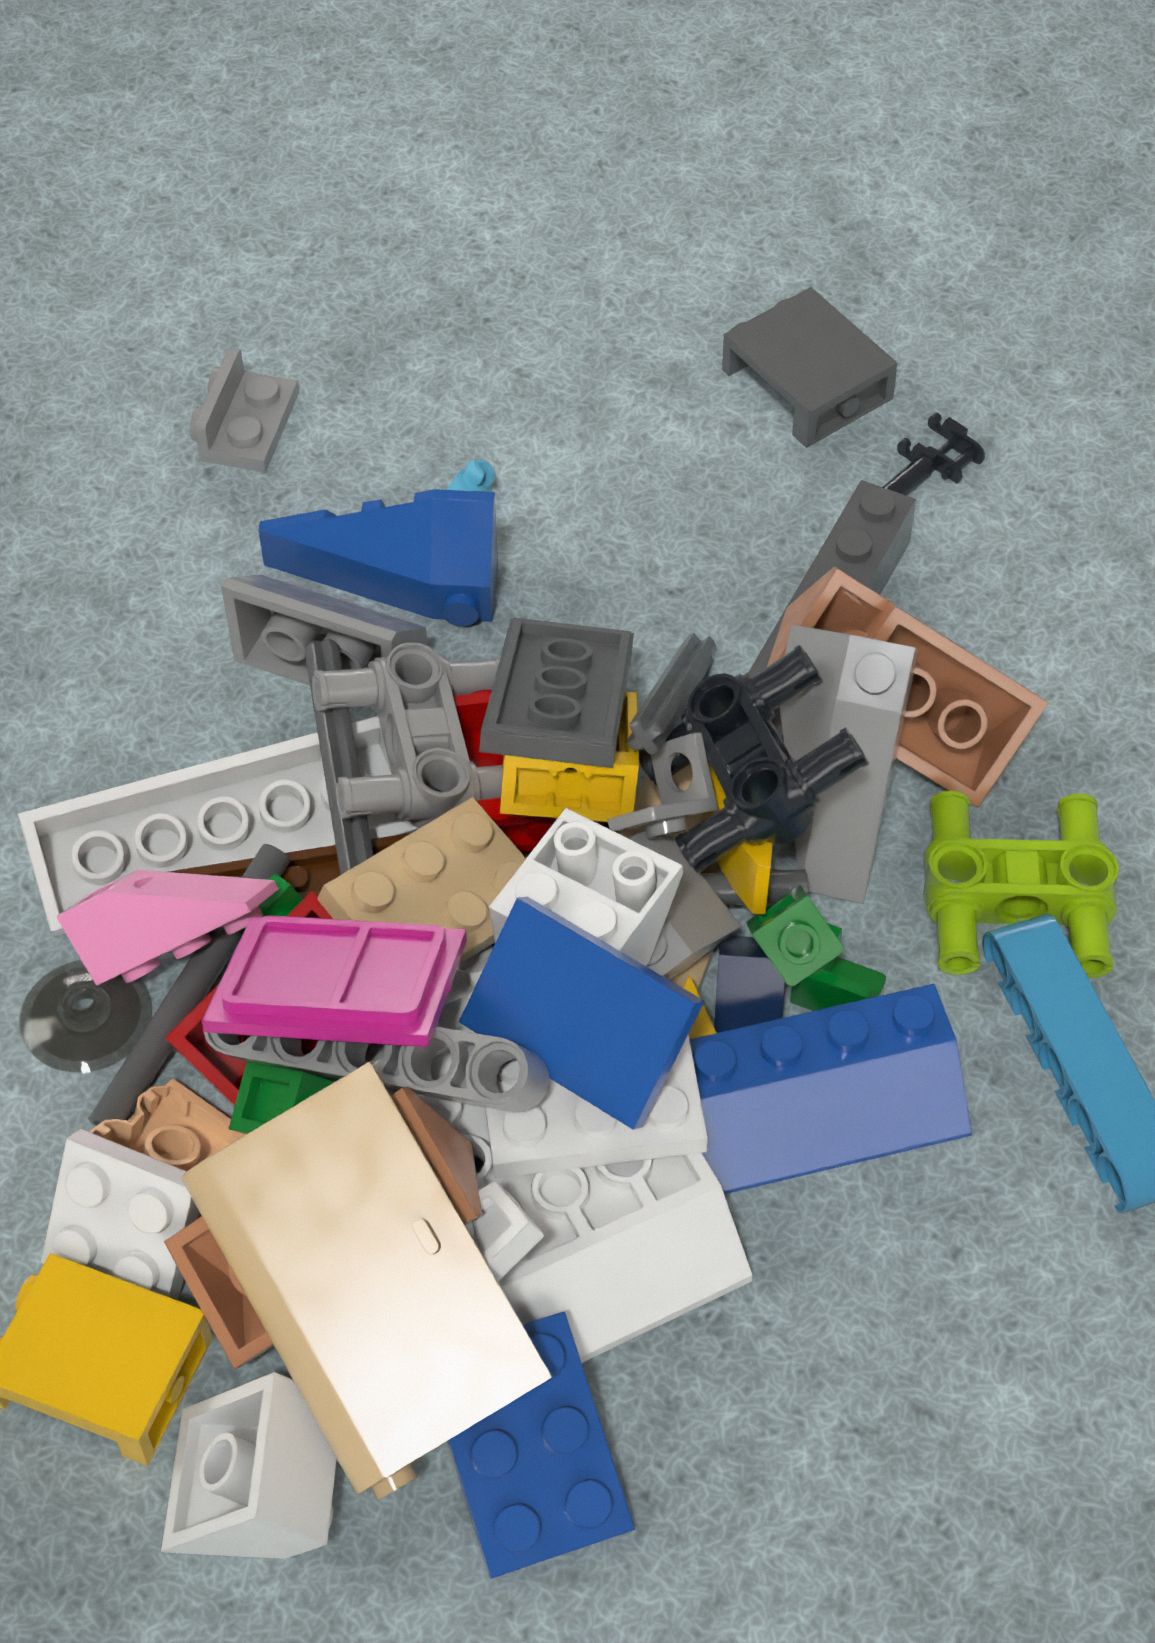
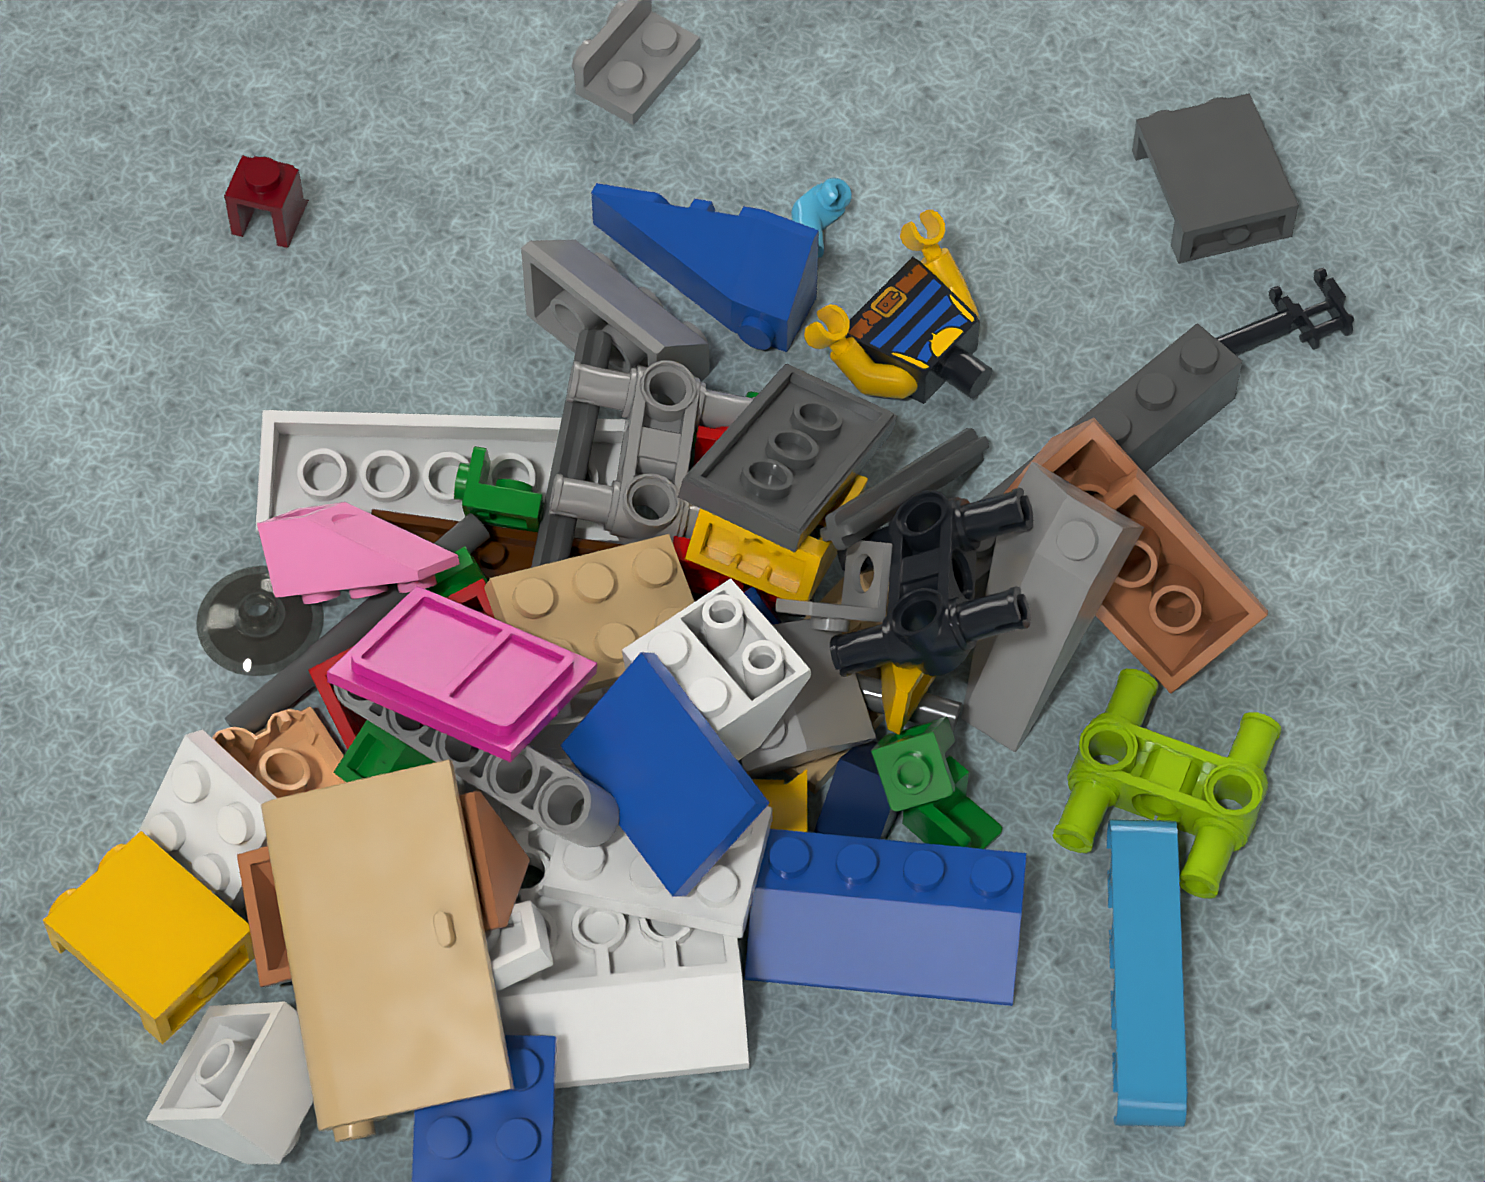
camera: 20 degrees right, 5 degrees up
(290, 827) = (504, 505): none -> green bracket
(604, 562) = (912, 329): none -> torso

